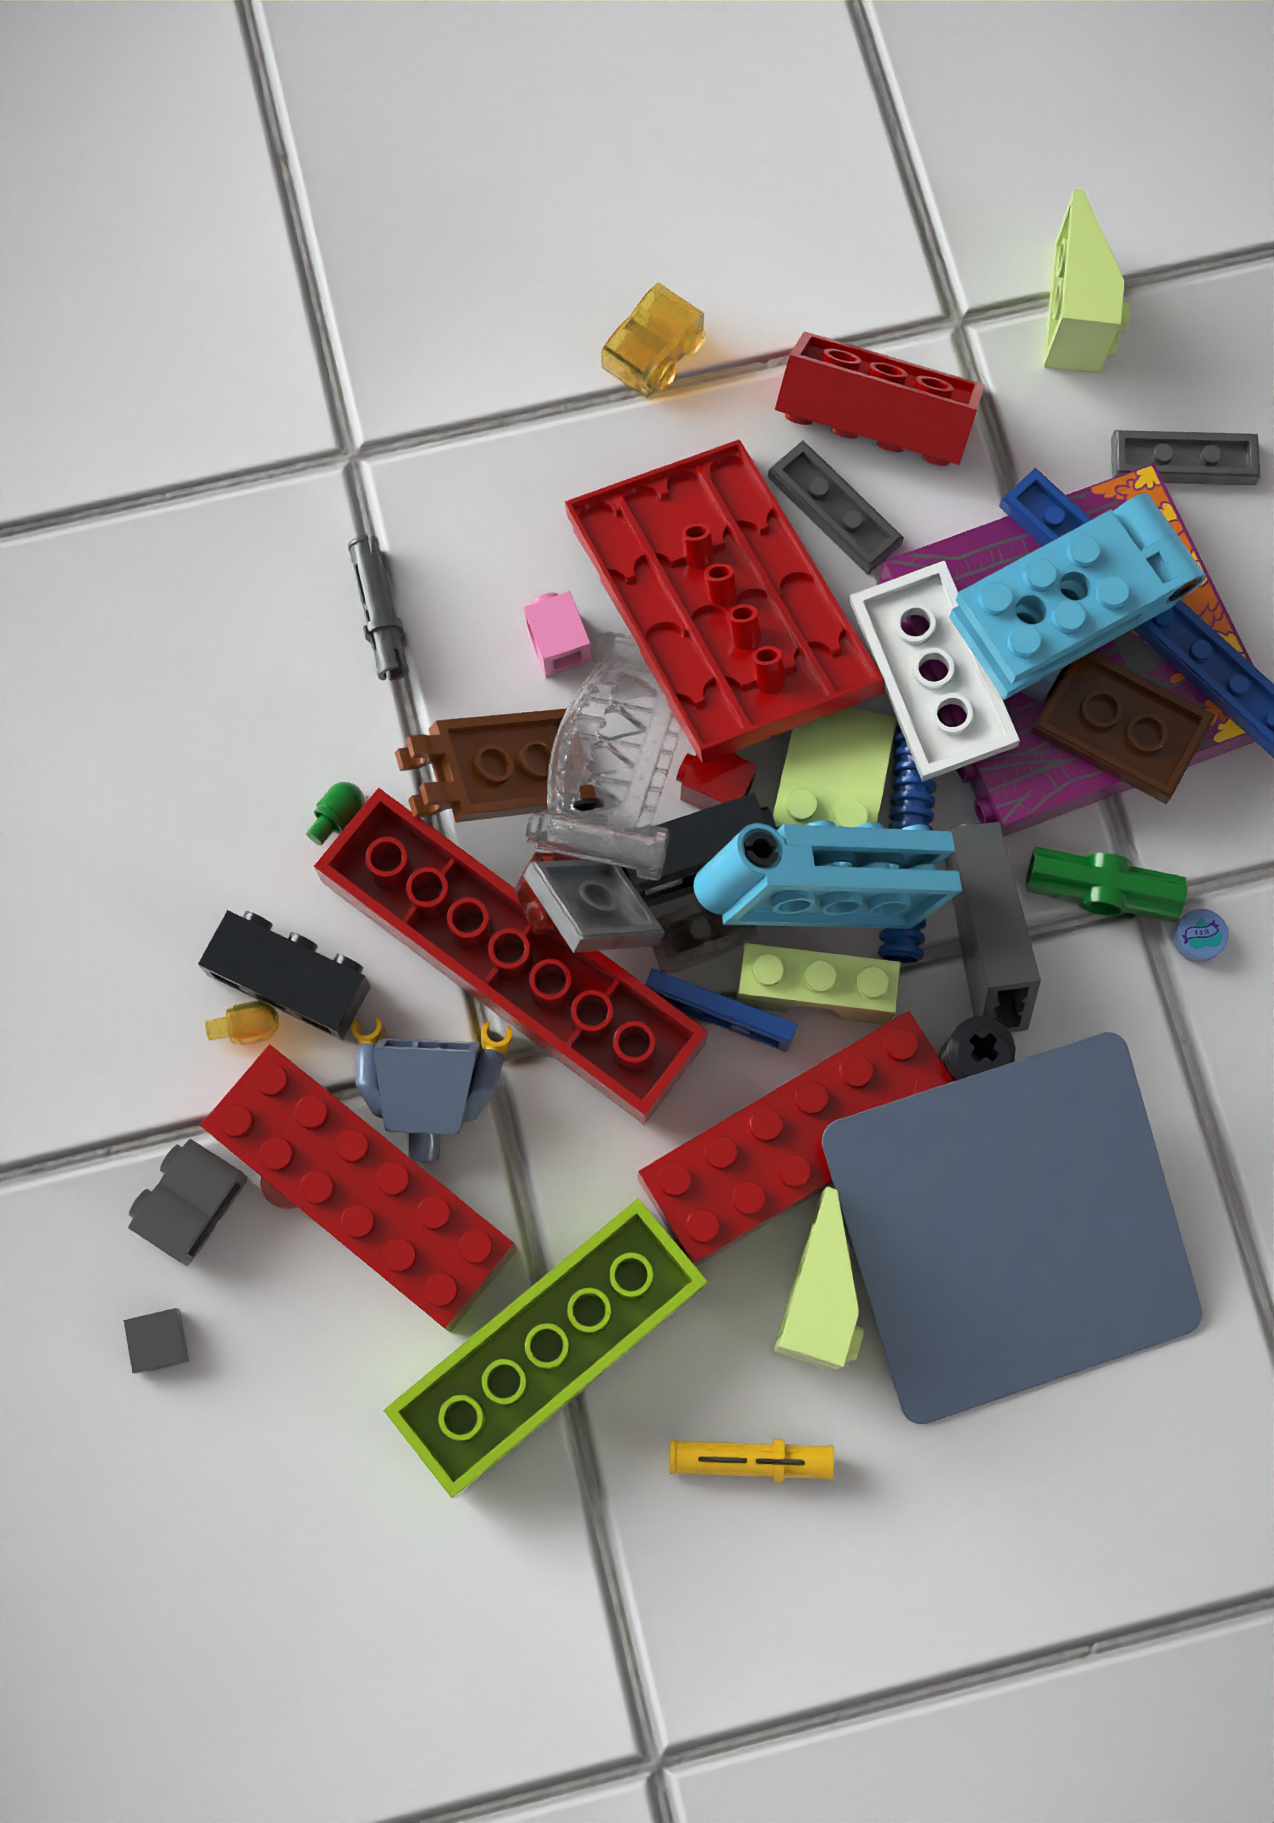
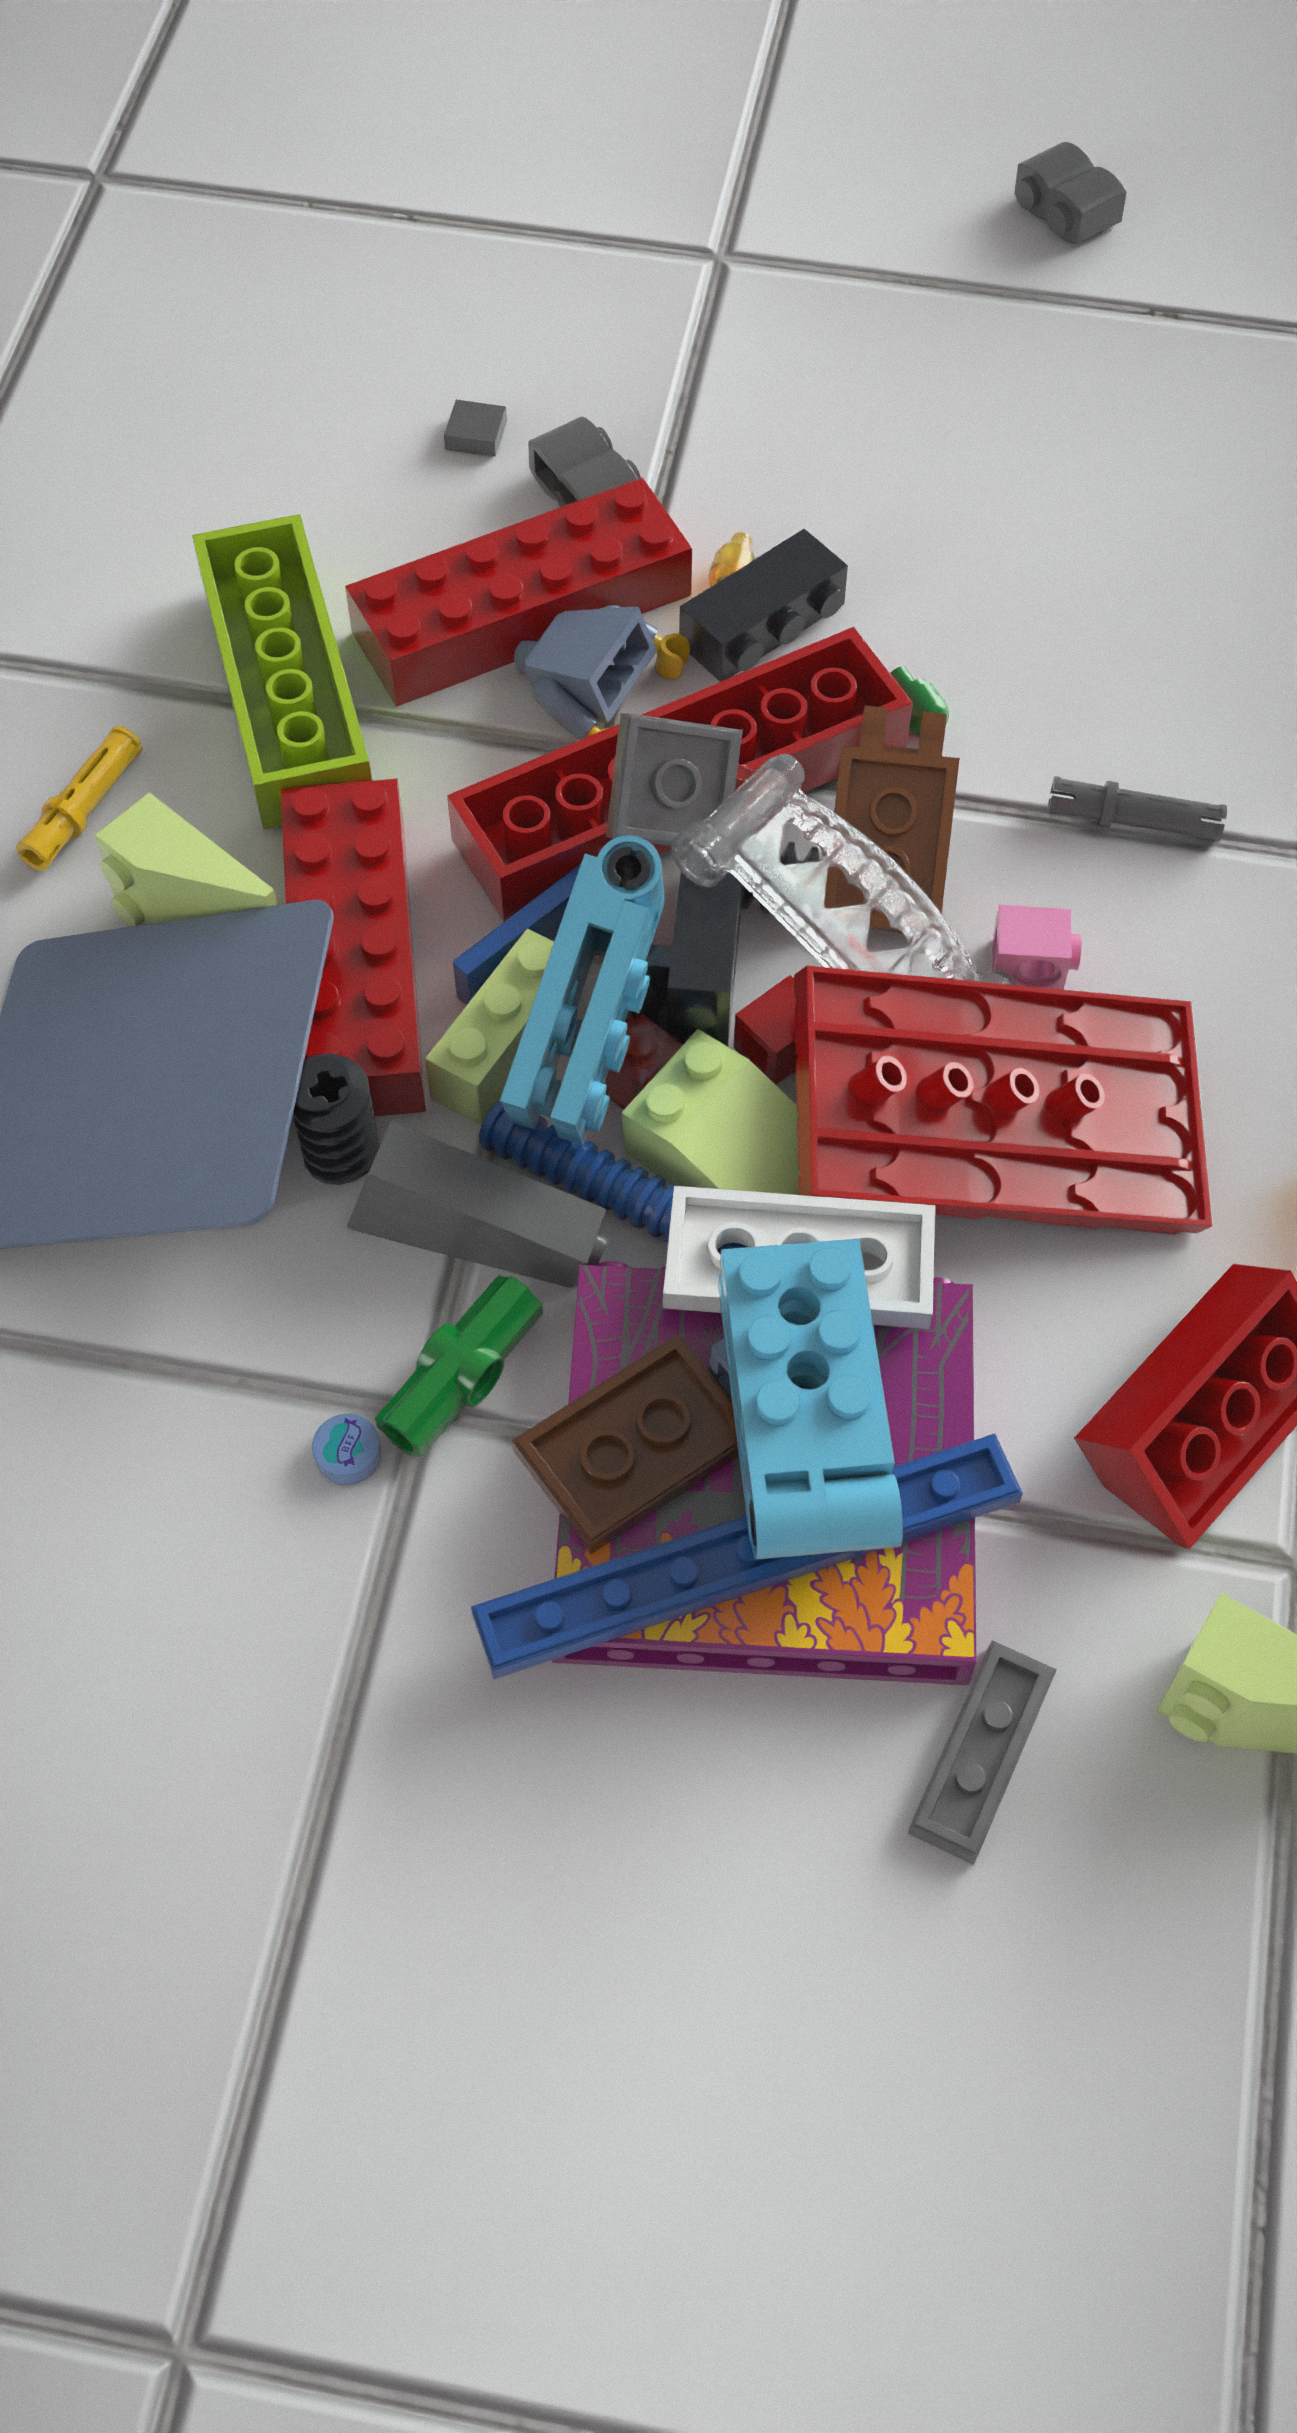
camera: 115 degrees right, 15 degrees down
(835, 507) = (1080, 1300): dark grey tile -> none

